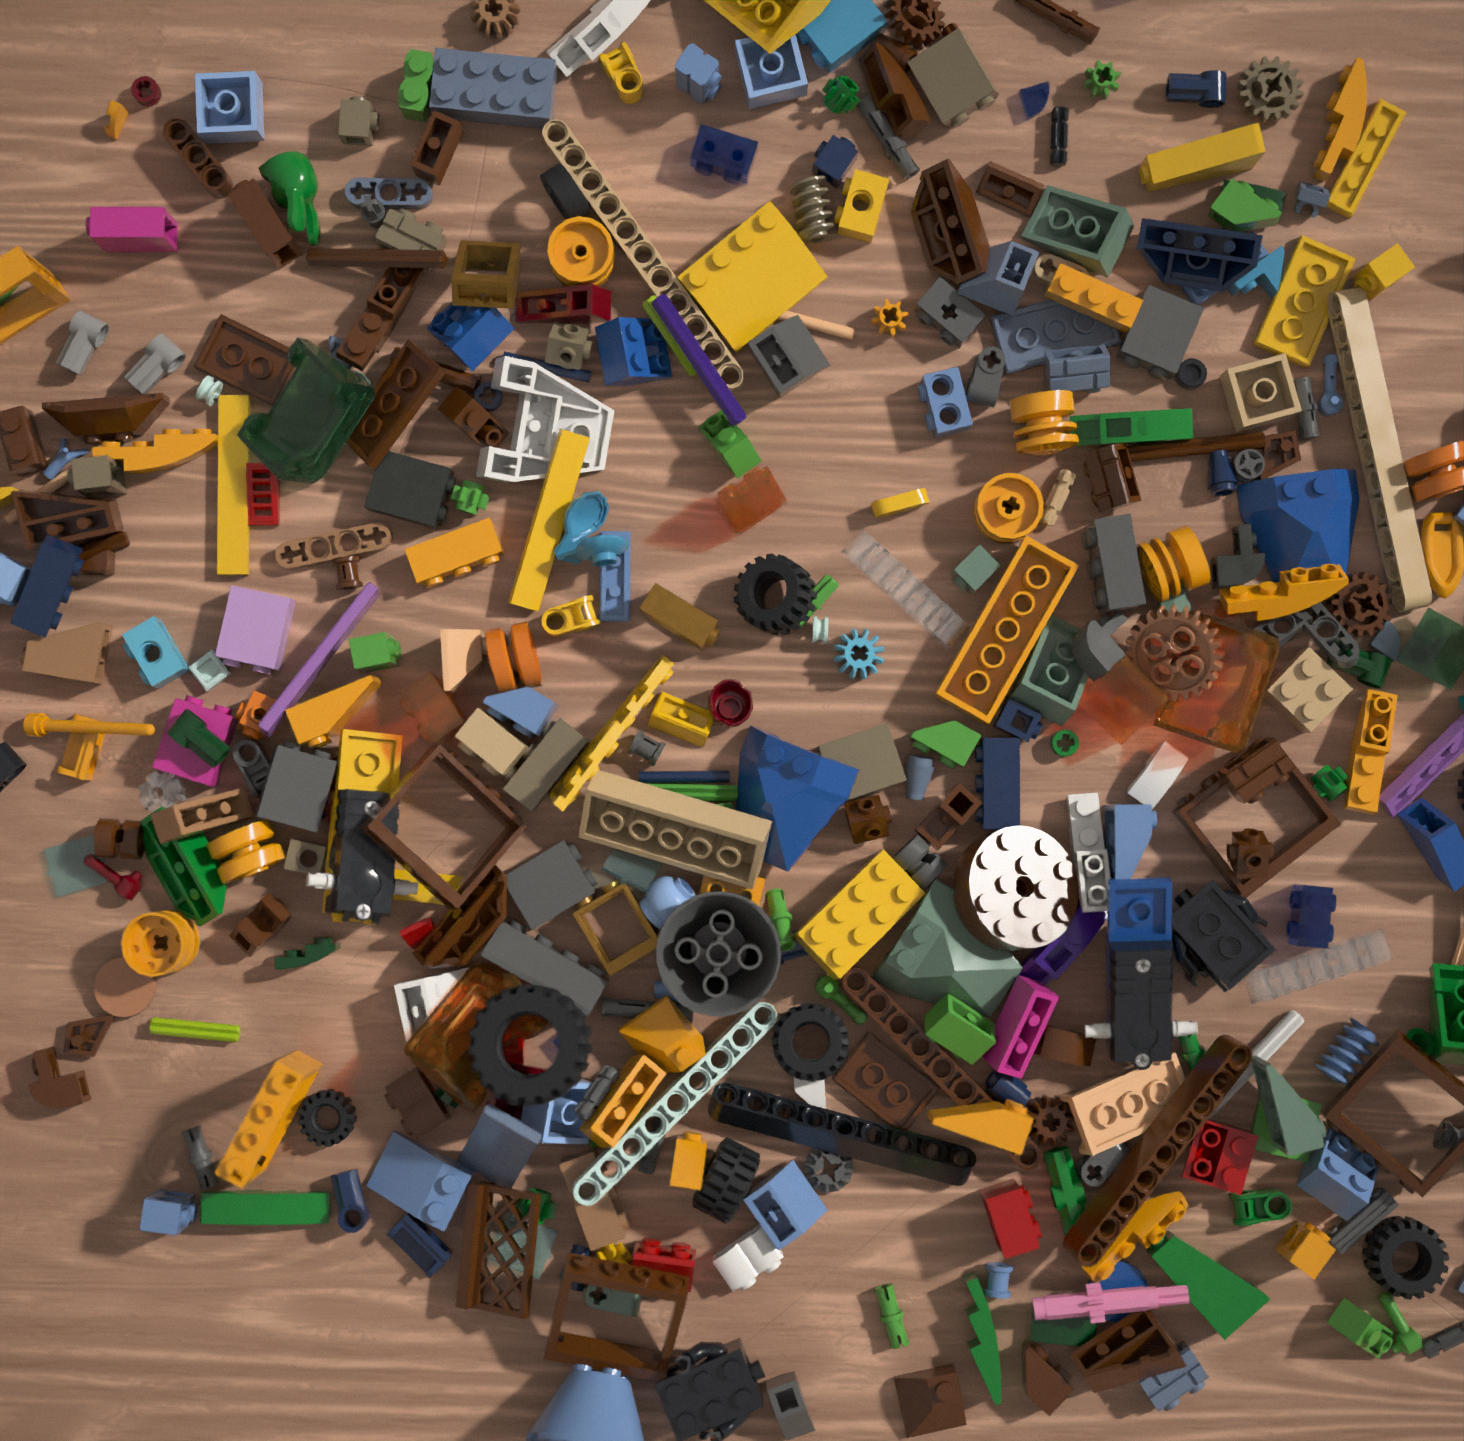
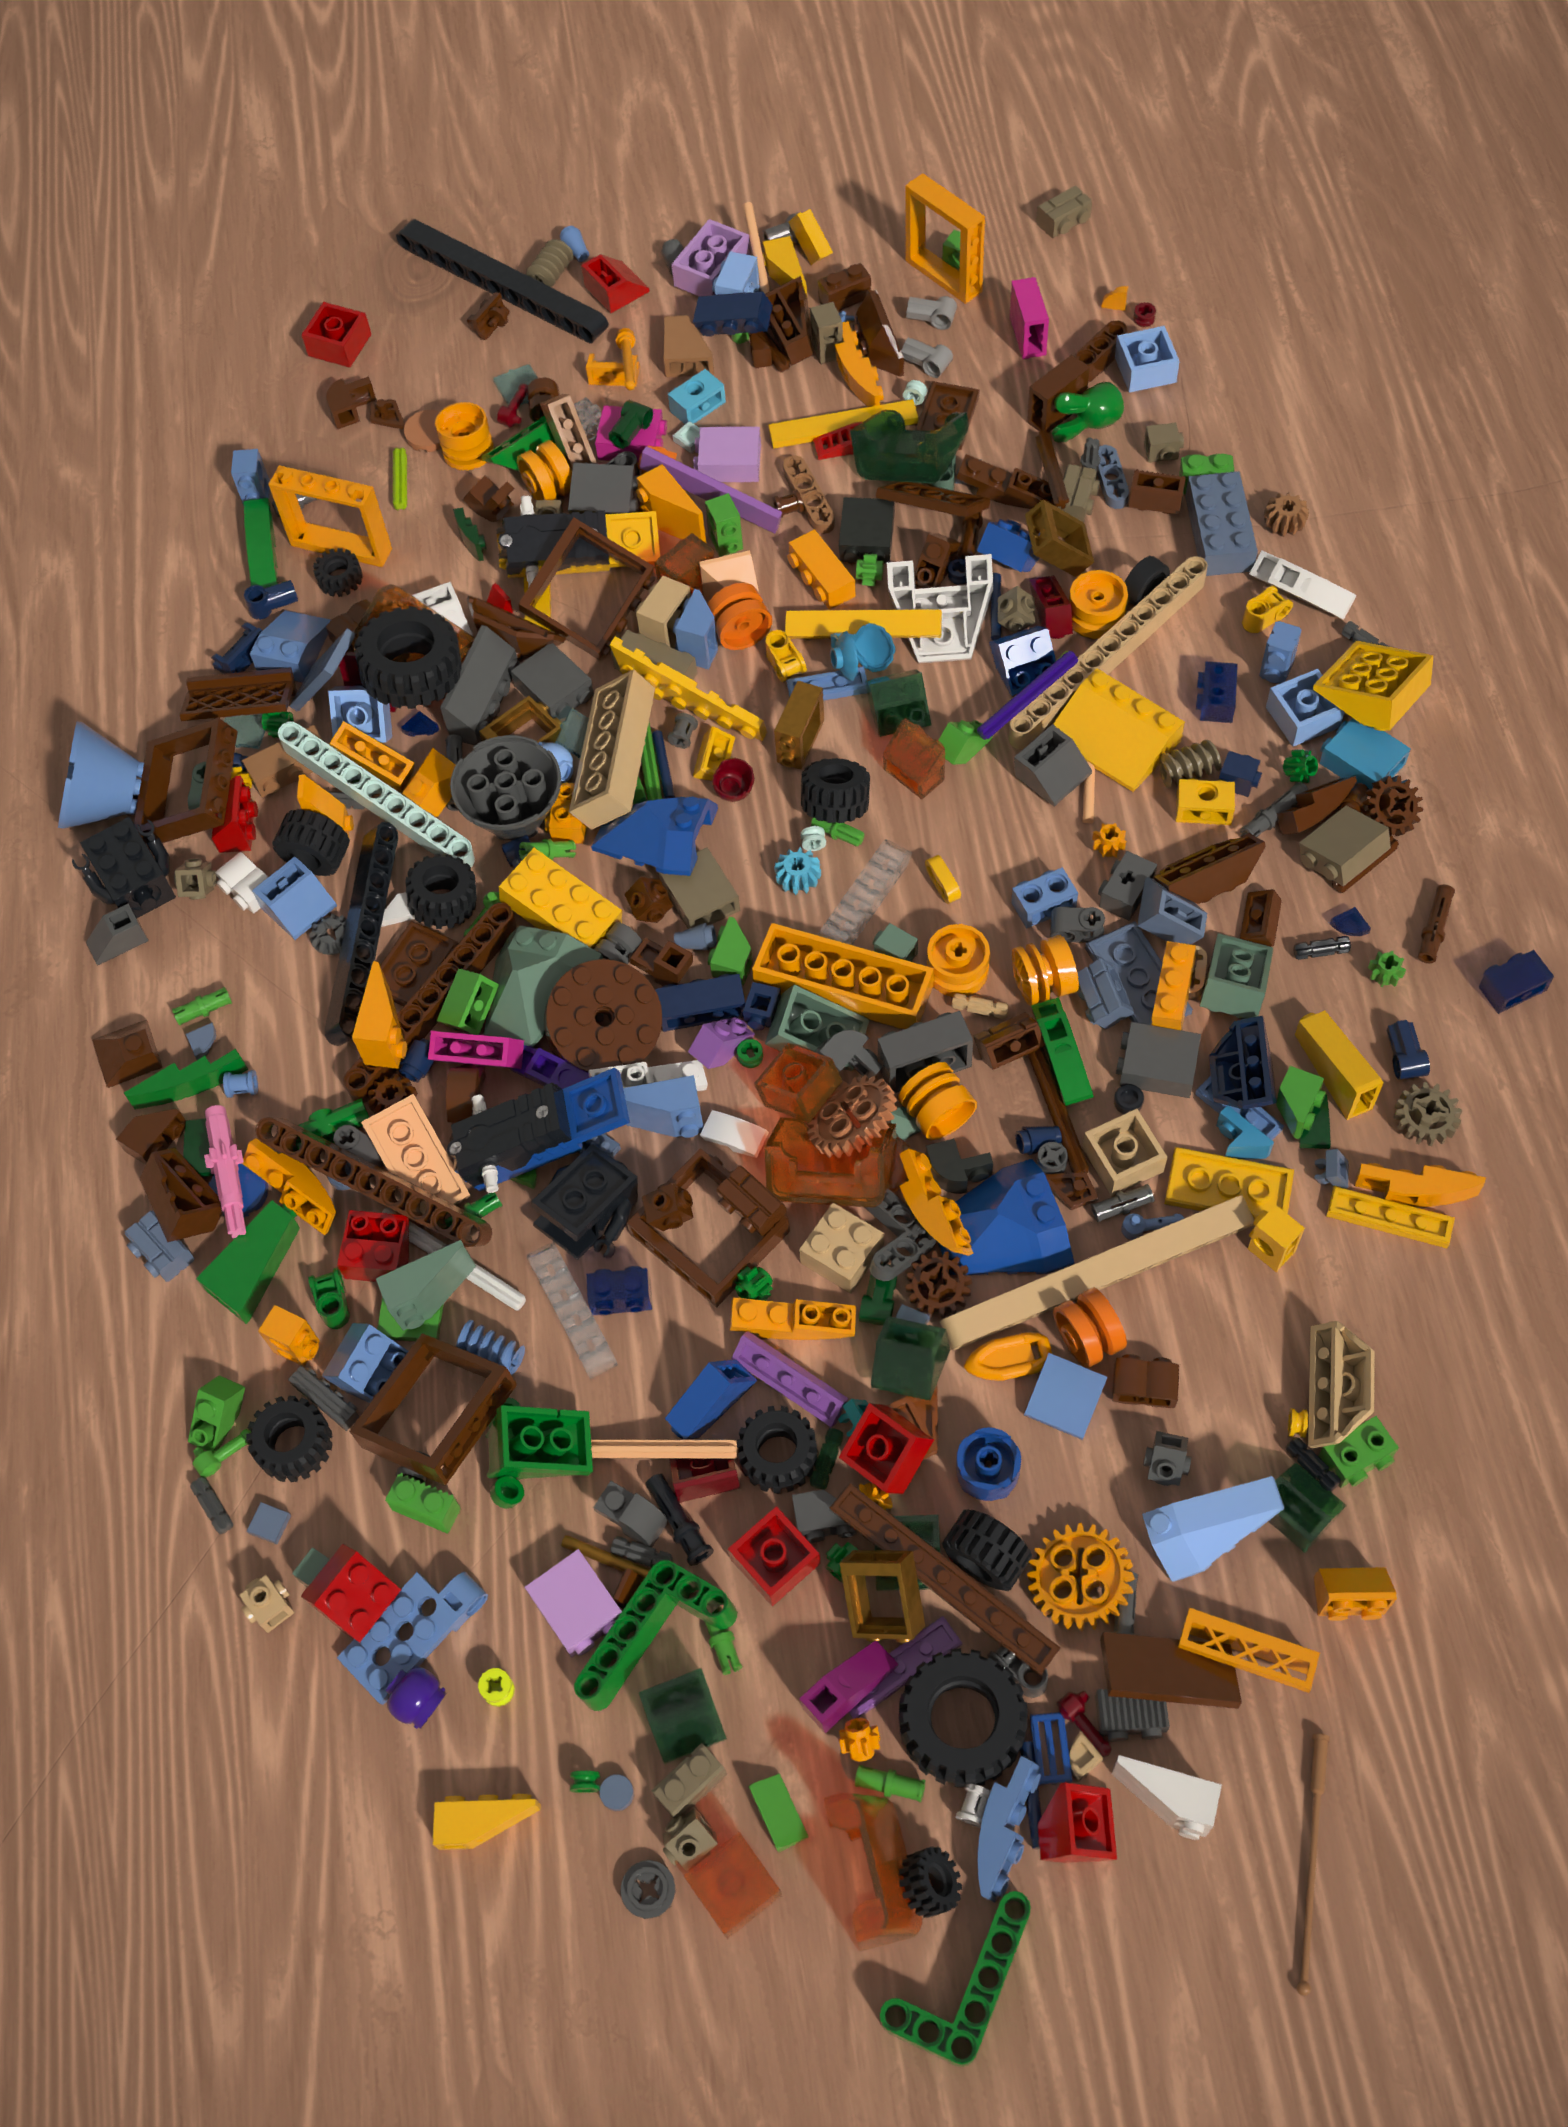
camera: 90 degrees right, 25 degrees down
(596, 1093) = (378, 735): dark grey axle -> none
(660, 502) = (898, 698): none -> clear green slope
(737, 1314) = (187, 882): none -> dark tan brick
(933, 1318) = (202, 1040): none -> sand blue tile
(1010, 1219) = (297, 1073): red brick -> none
(1050, 770) = (719, 1041): none -> medium lavender slope

